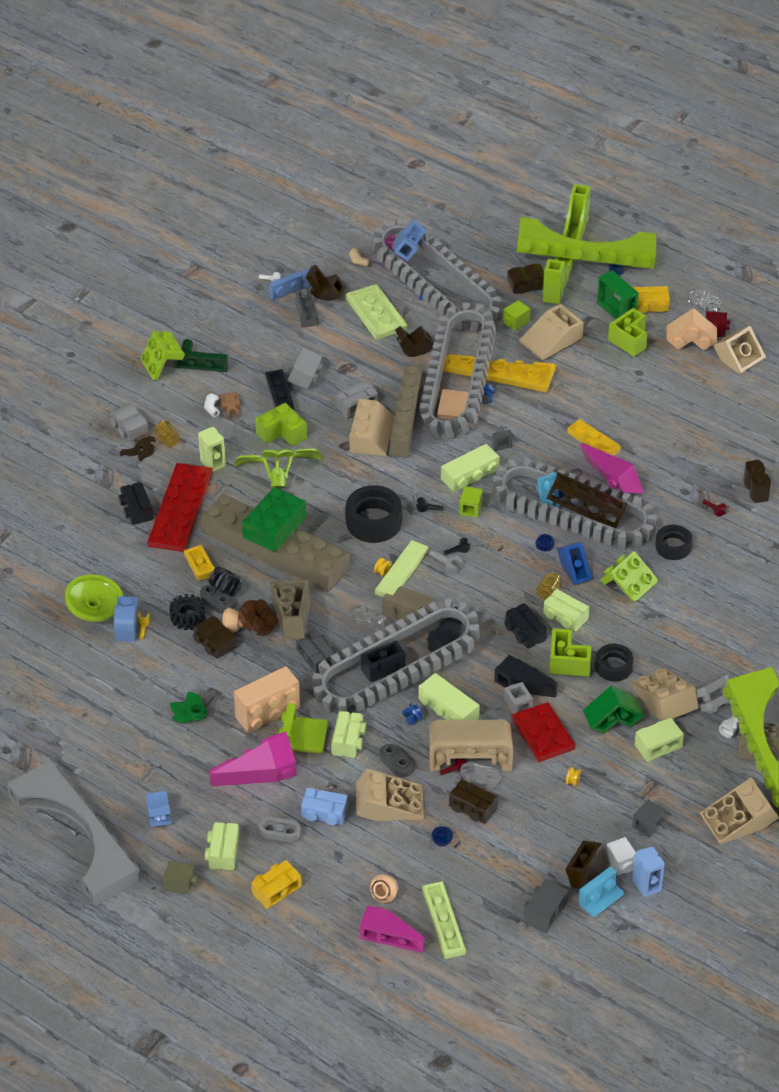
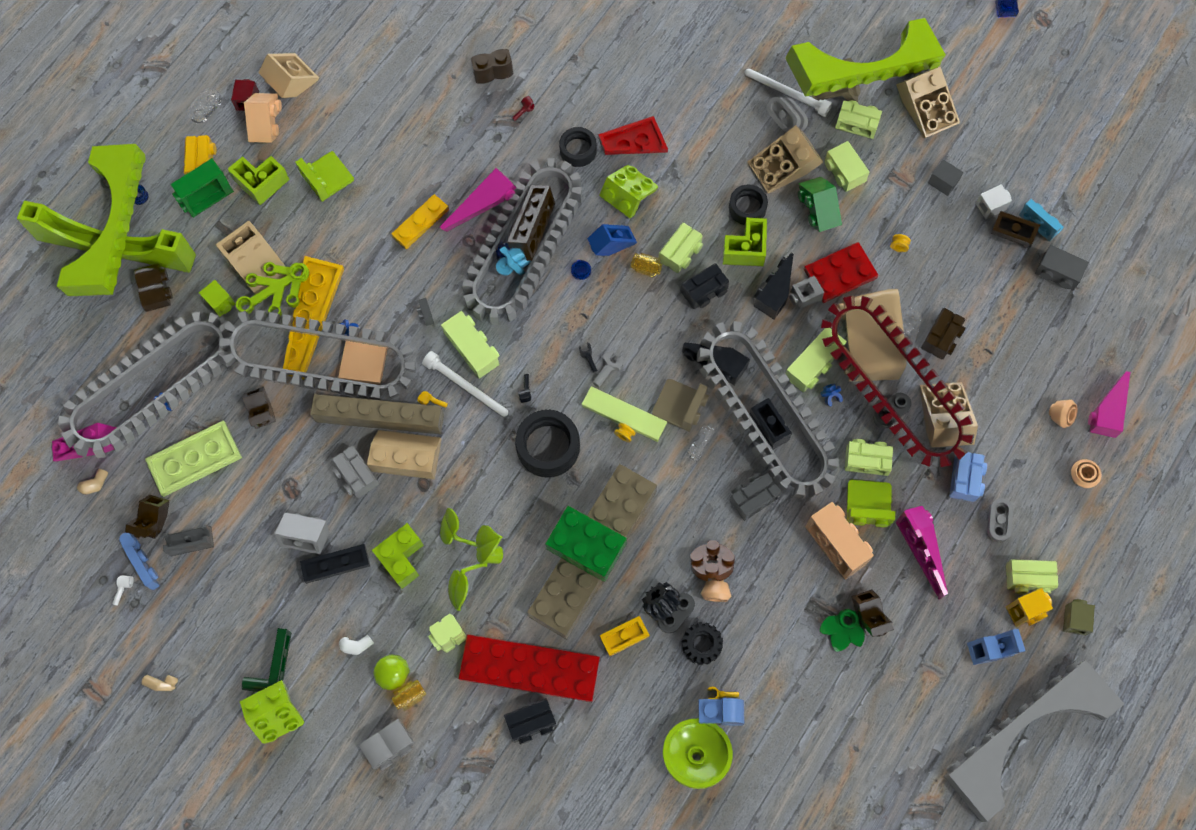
camera: 90 degrees left, 25 degrees up
(145, 444) = (425, 719): dark brown piece -> none
(187, 424) = (391, 672): none -> lime hair
(190, 832) = (1030, 608): none -> yellow brick
(192, 299) = (158, 685): none -> tan arm
(200, 724) = (871, 614): none -> dark brown brick
(214, 637) = (740, 609): dark brown brick -> none
(230, 403) = (350, 622): medium nougat plate -> none
(276, 884) = (1072, 519): yellow brick -> none
(292, 605) = (705, 521): dark tan wedge -> none
(319, 896) = (1086, 473): none -> light nougat cone
(352, 783) = (897, 331): none -> dark red piece
(406, 241) = (101, 412): medium blue brick -> none
(421, 441) = (425, 397): none -> yellow hand
(442, 836) = (986, 363): clear blue plate -> none
(443, 920) = (1084, 360): yellowish green tile -> none
(455, 446) = (432, 361): none -> white piece
(470, 502) = (523, 342): lime brick -> none
(535, 356) = (276, 286): none -> lime plant
(634, 374) = (325, 175): none -> lime bracket
(648, 871) = (1020, 174): light blue brick -> none
(685, 582) = (634, 138): none -> red wing
(715, 752) = (858, 119): none -> yellowish green brick

